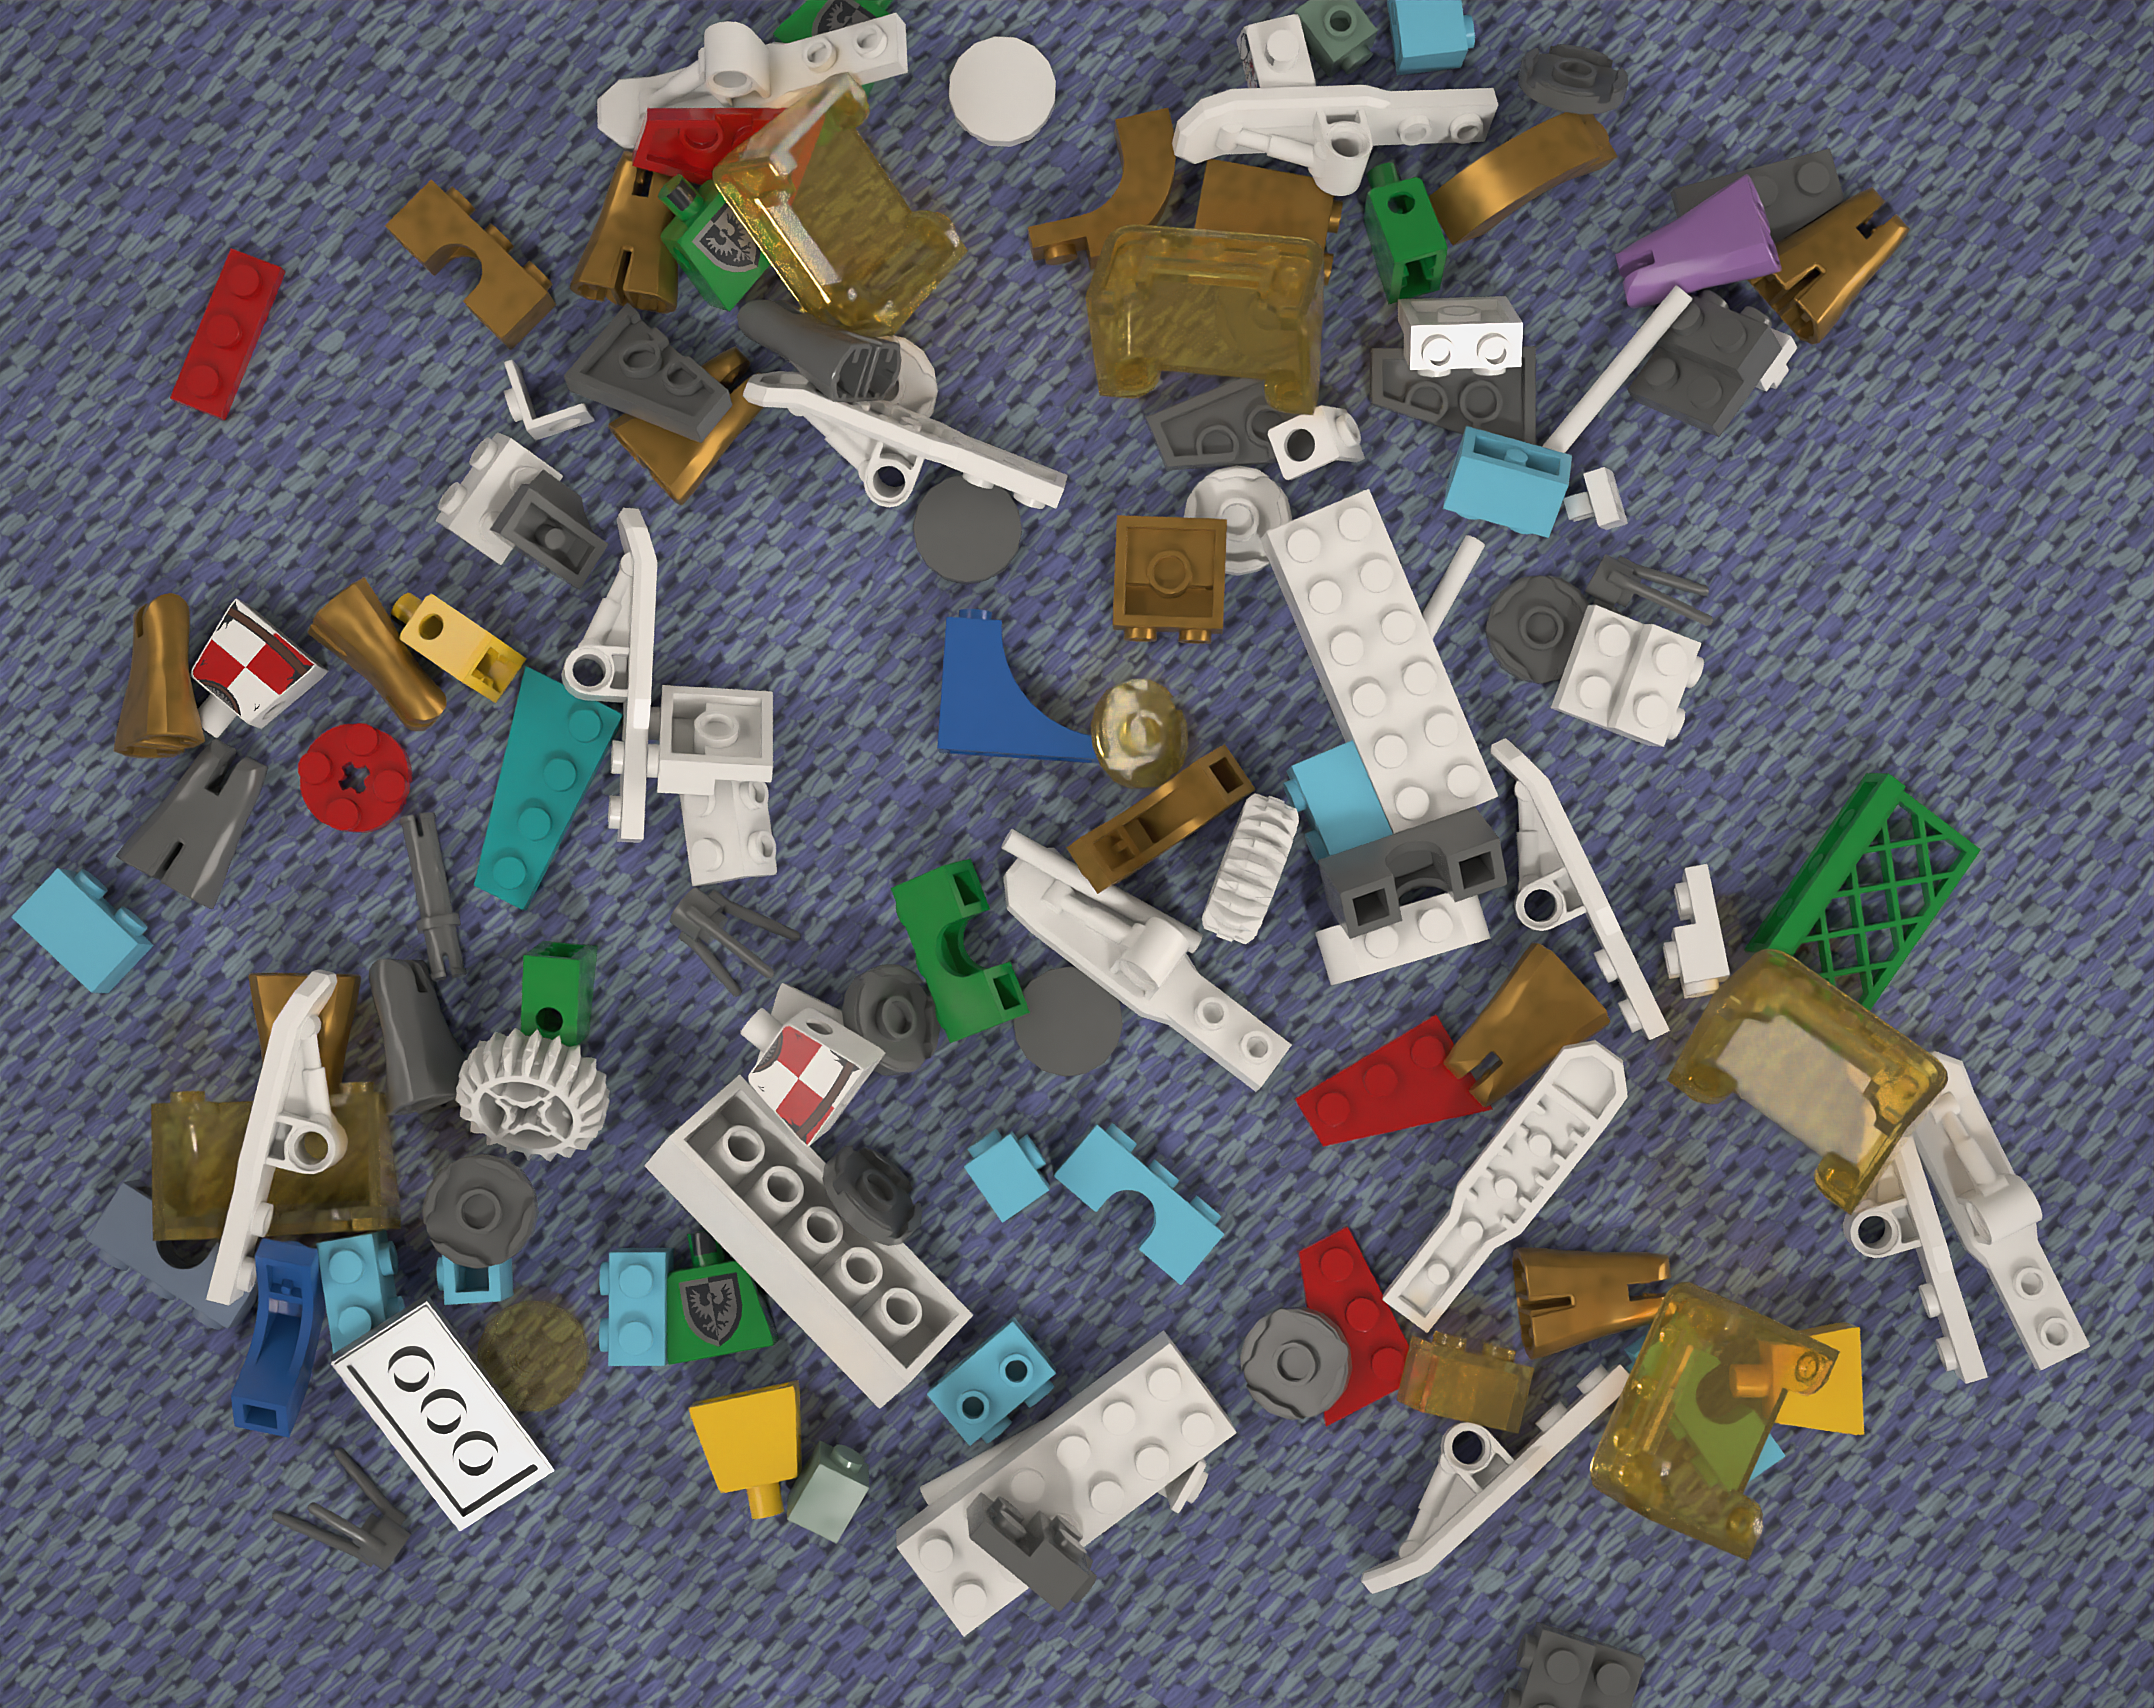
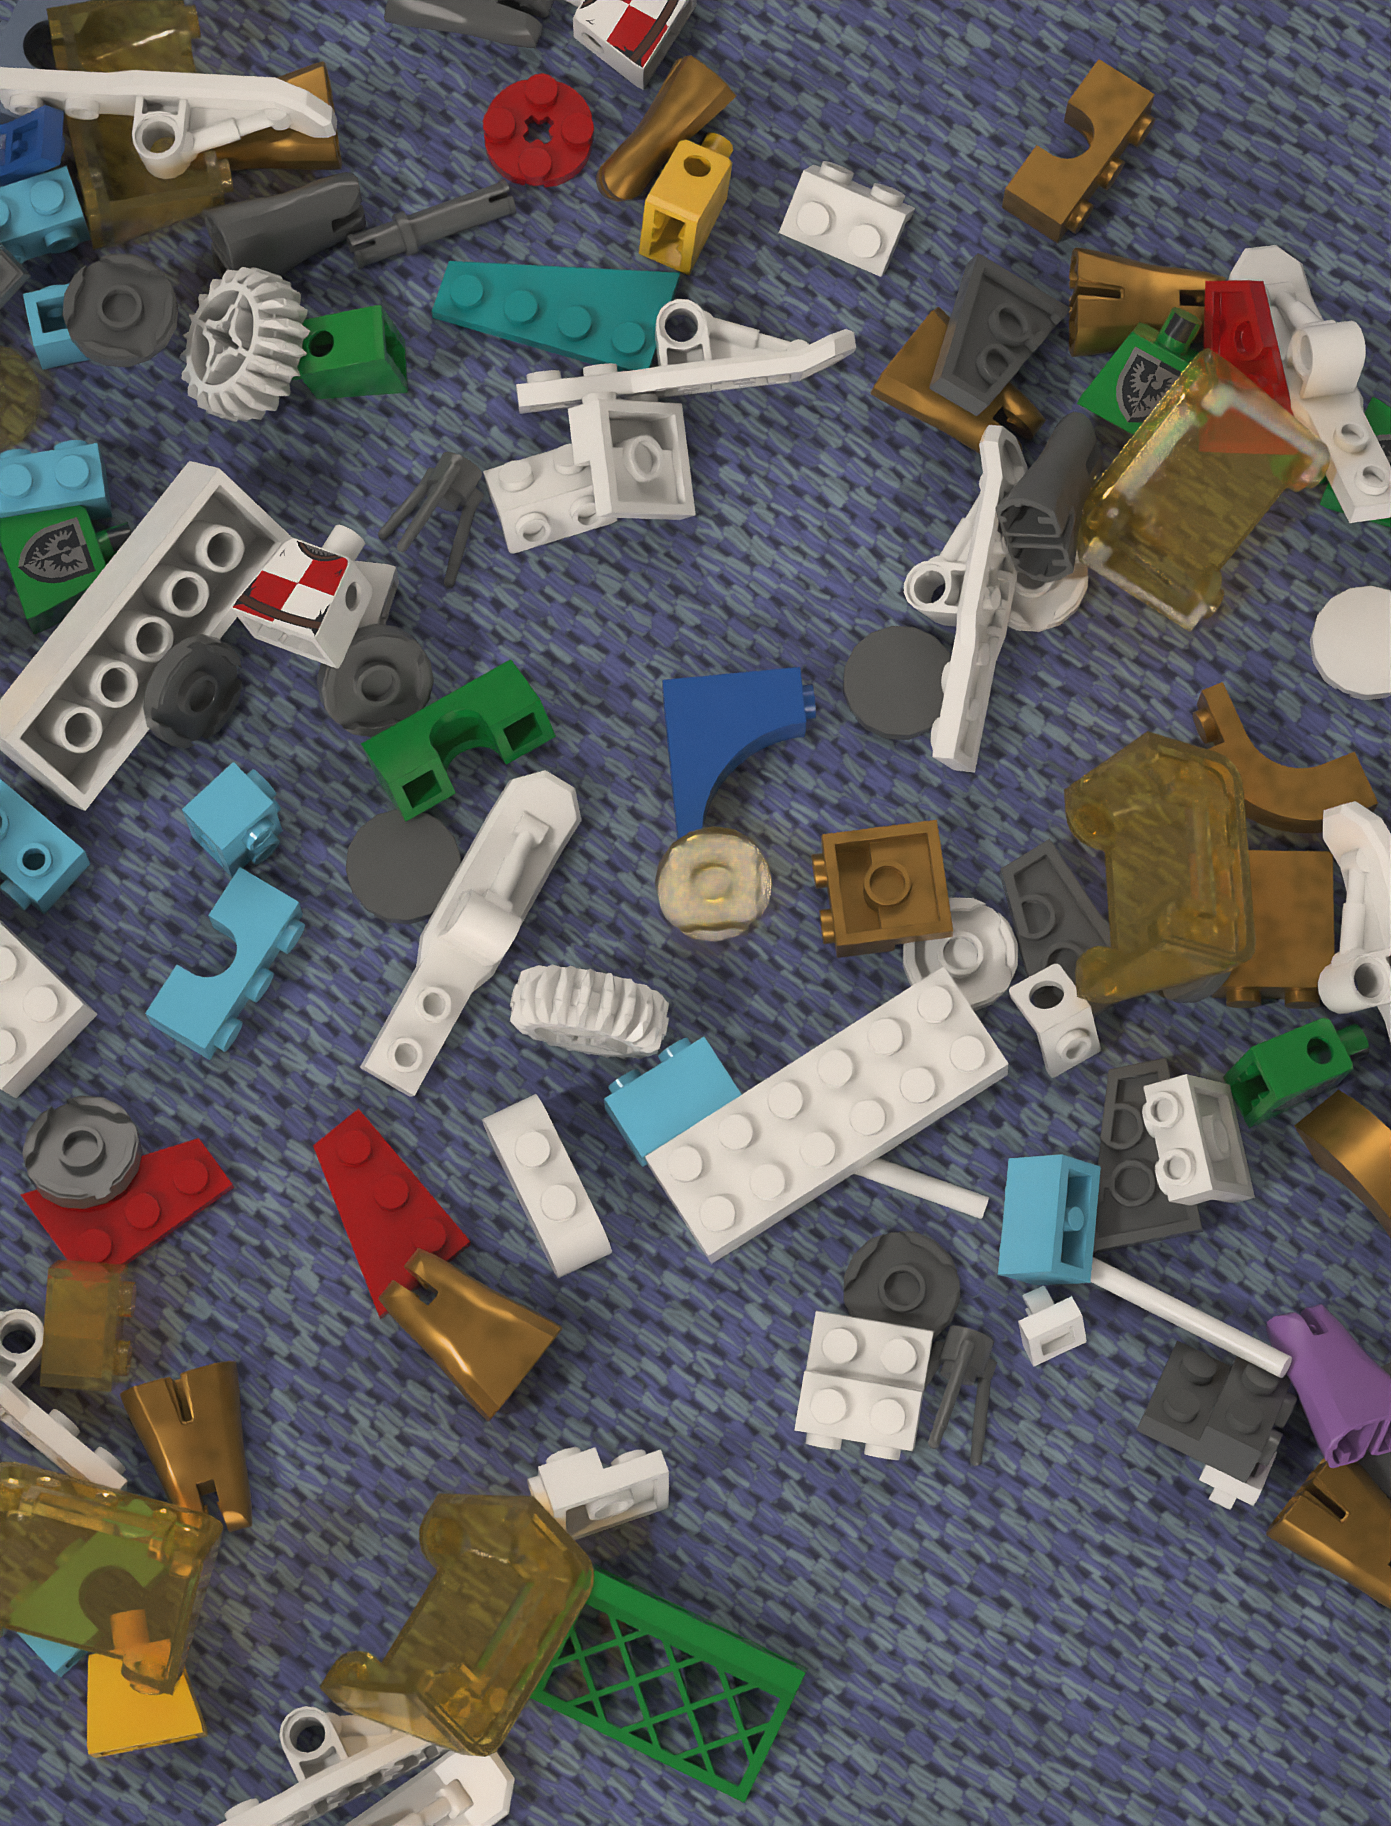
camera: 85 degrees right, 10 degrees down
(522, 409) = (940, 226): white bracket -> none
(551, 529) = (823, 271): dark grey slope -> none
(1070, 874) = (544, 869): white bar -> none
(1161, 819) = (622, 917): pearl gold arch -> none
(1446, 853) = (596, 1130): dark grey arch -> none
(1513, 1177) = (309, 1331): white piece -> none
(1555, 862) = (648, 1344): white piece -> none

